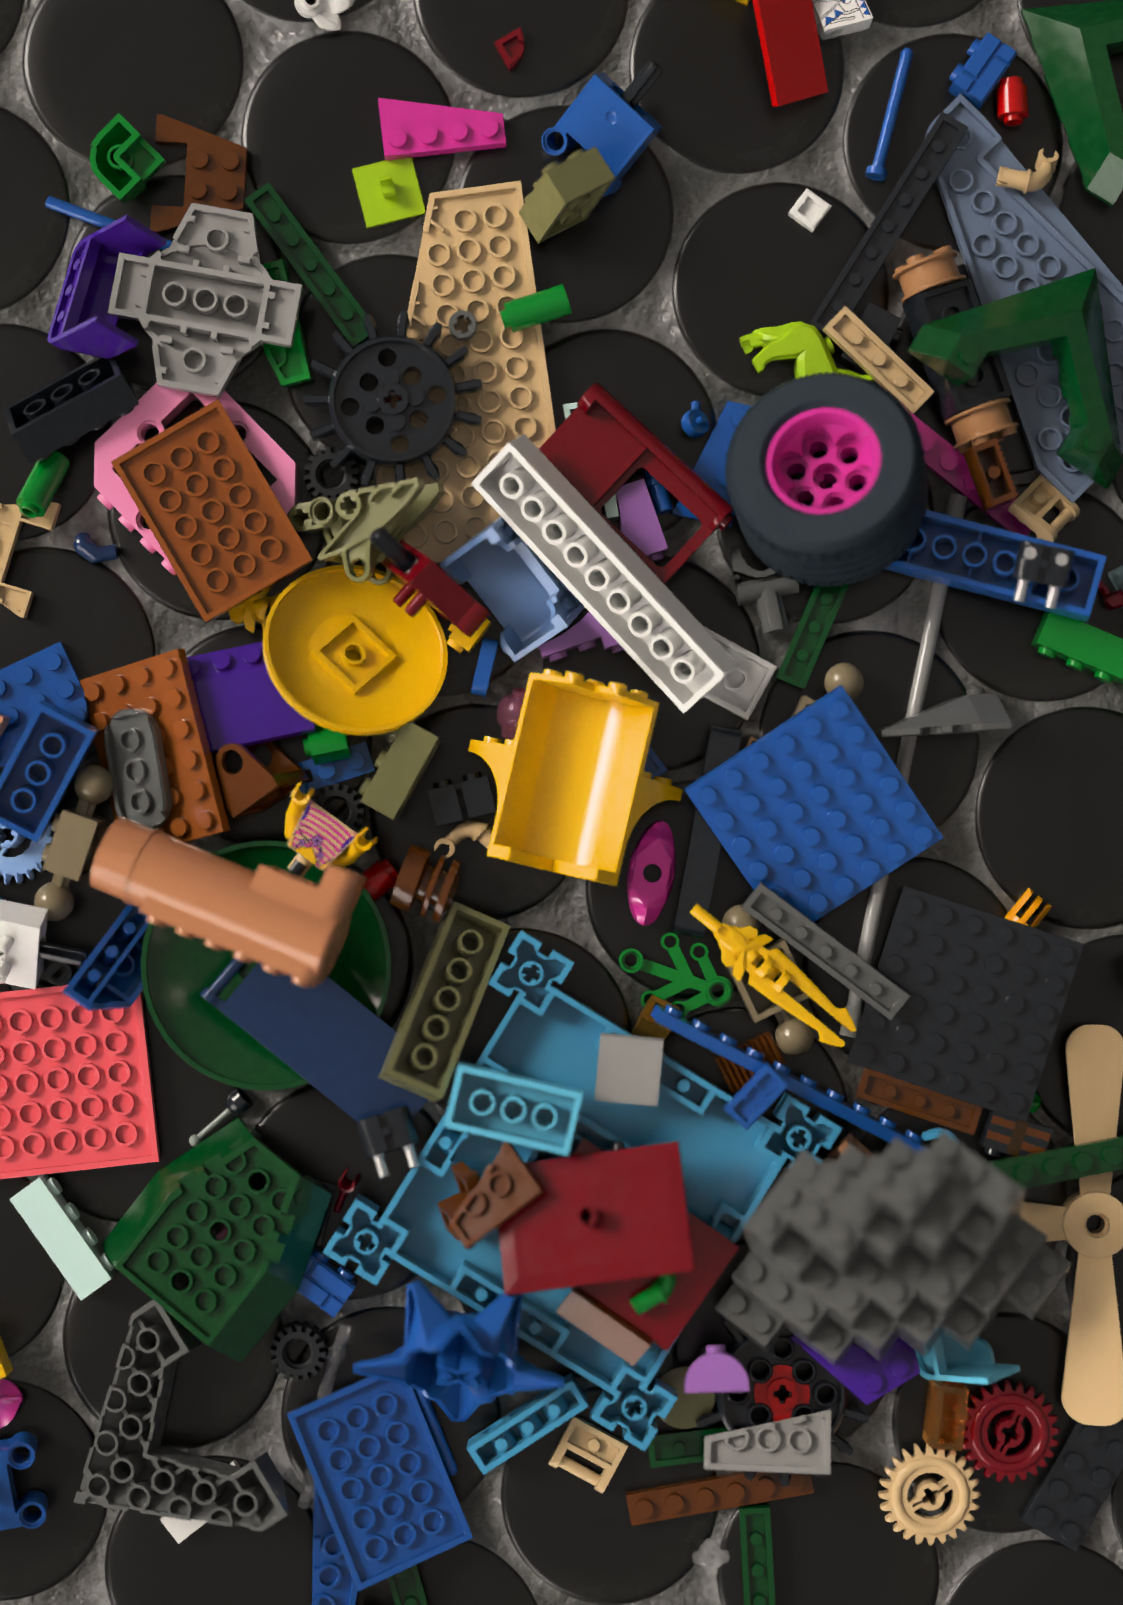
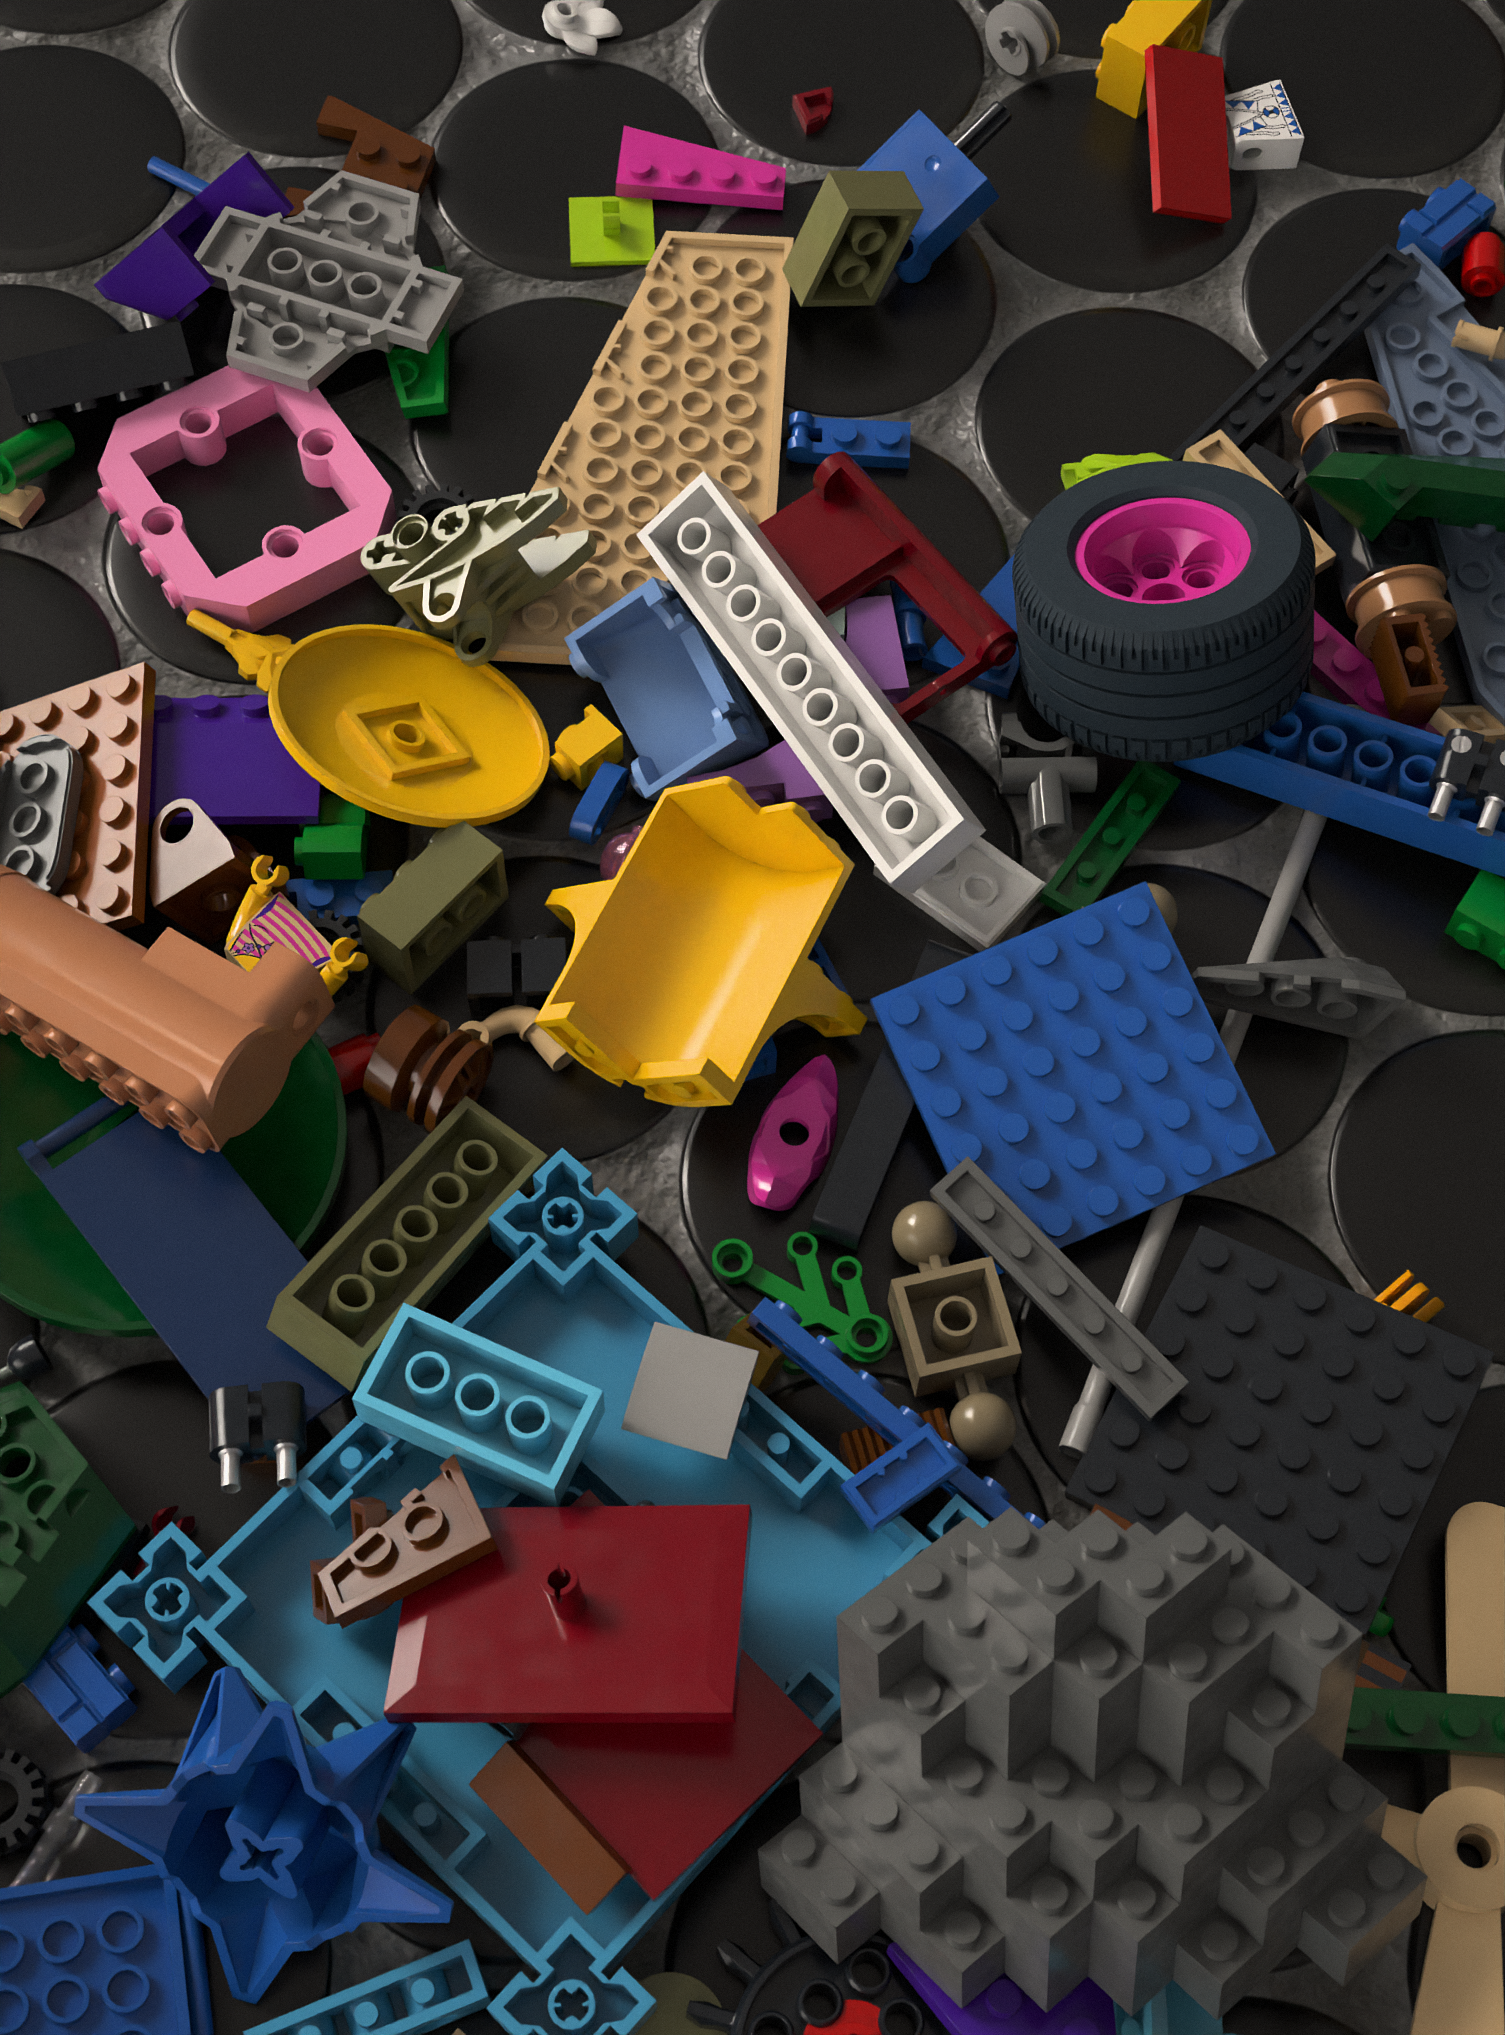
camera: 10 degrees right, 25 degrees down
(90, 551) = (69, 562): dark blue arm -> none
(123, 159) = (269, 123): green brick -> none
(212, 511) = (255, 521): dark orange plate -> none
(309, 263) = (485, 288): dark green plate -> none
(375, 405) = (554, 439): black gear -> none
(429, 584) = (542, 648): dark red piece -> none
(454, 323) = (673, 364): dark grey bush -> none
(535, 308) = (780, 369): green brick -> none
(591, 345) = (866, 441): none -> blue plate
(654, 1295) = (660, 1775): green piece -> none
(695, 421) = (979, 552): blue piece -> none
(716, 1372) = (735, 1968): medium lavender brick -> none
(743, 952) = (926, 1253): yellow sword -> none
(809, 210) = (1185, 343): white tile -> none
(876, 170) = (1286, 312): blue bar -> none

